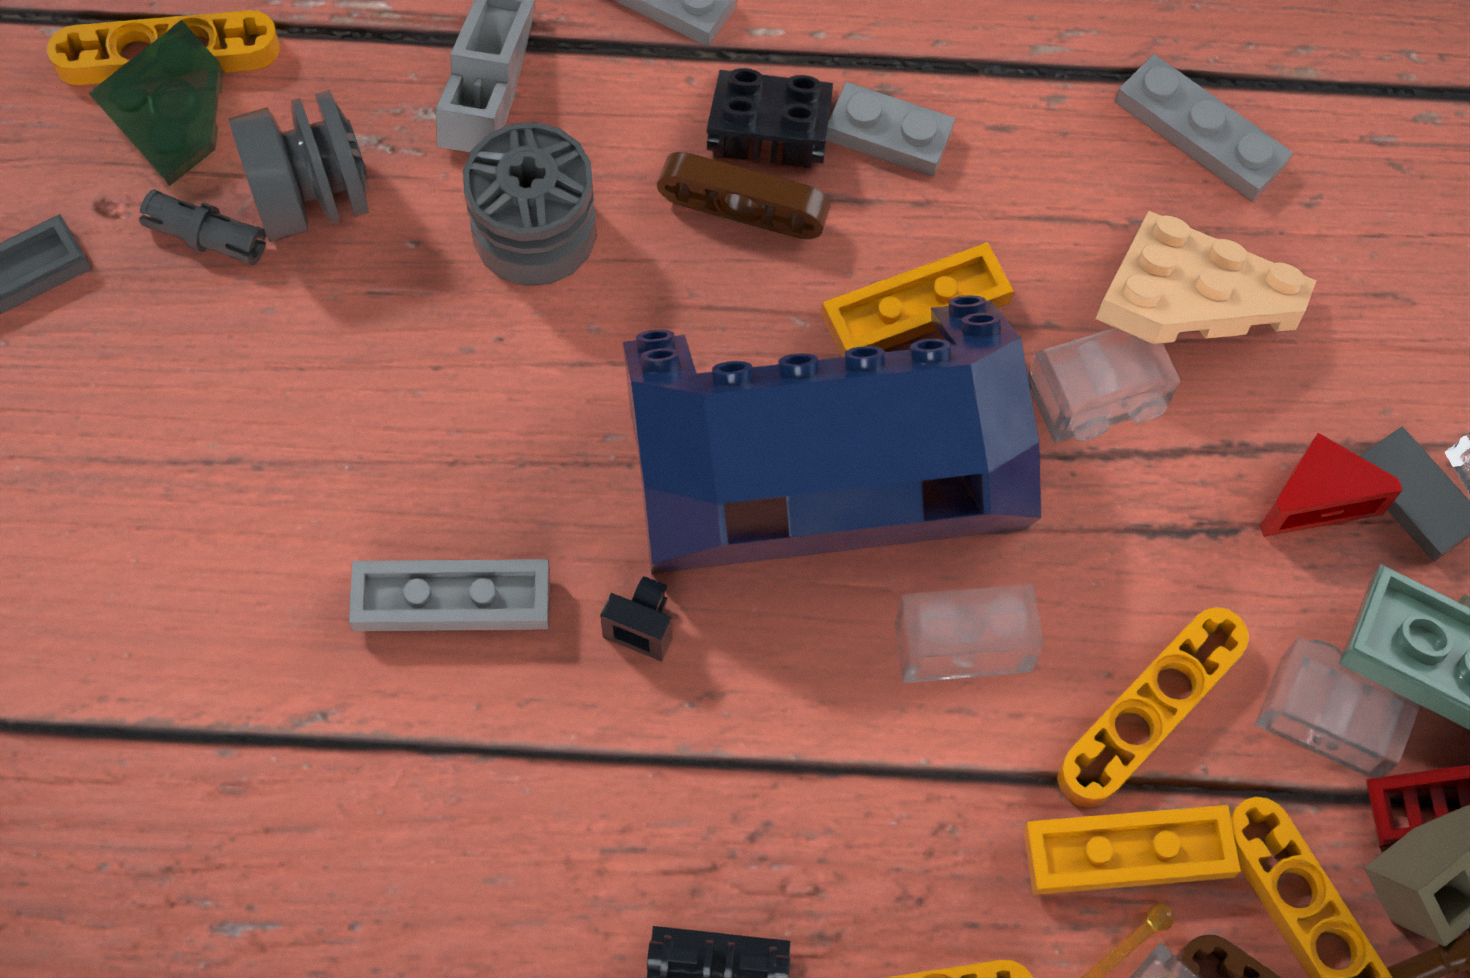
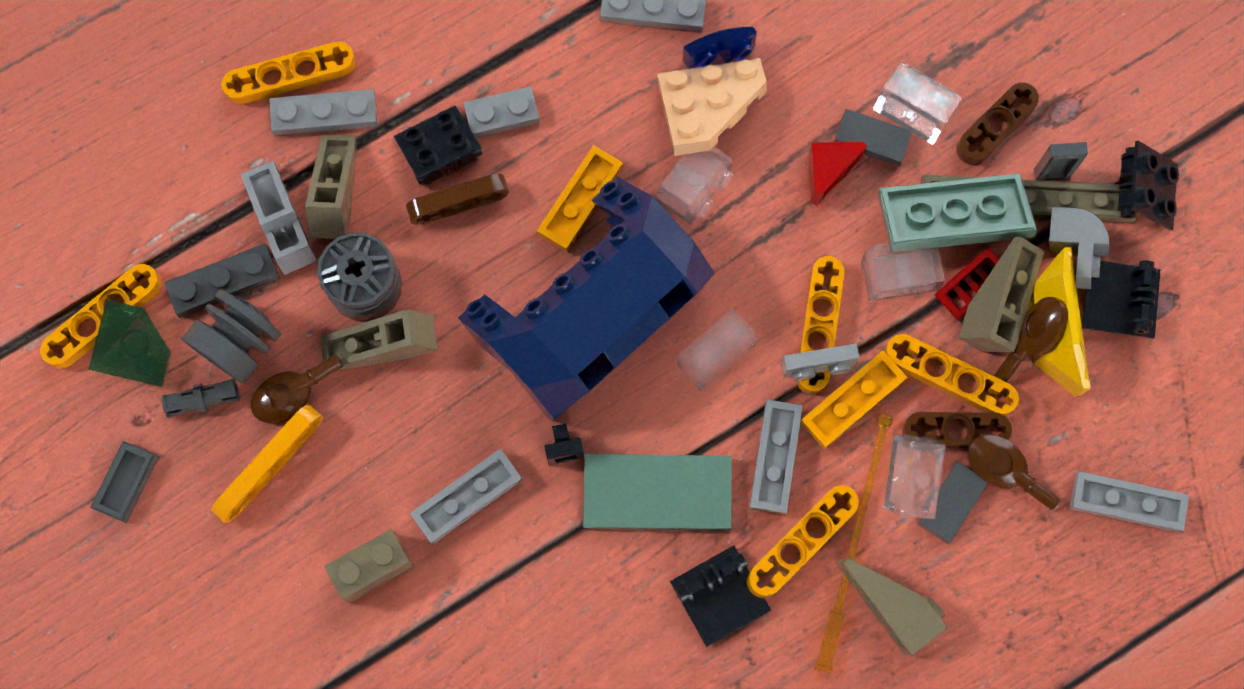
camera: 30 degrees left, 10 degrees up
(216, 366) = (267, 464): none -> light orange beam
(238, 594) = (369, 566): none -> dark tan brick
(323, 294) = (289, 391): none -> reddish brown piece
(373, 104) = (232, 275): none -> dark grey plate
(499, 307) = (382, 340): none -> dark tan slope
(584, 73) = (331, 187): none -> dark tan slope
(732, 783) = (657, 492): none -> sand green tile
(947, 853) = (776, 457): none -> light grey plate
(1138, 761) = (806, 364): none -> light grey plate
(1281, 229) = (729, 43): none -> clear blue slope

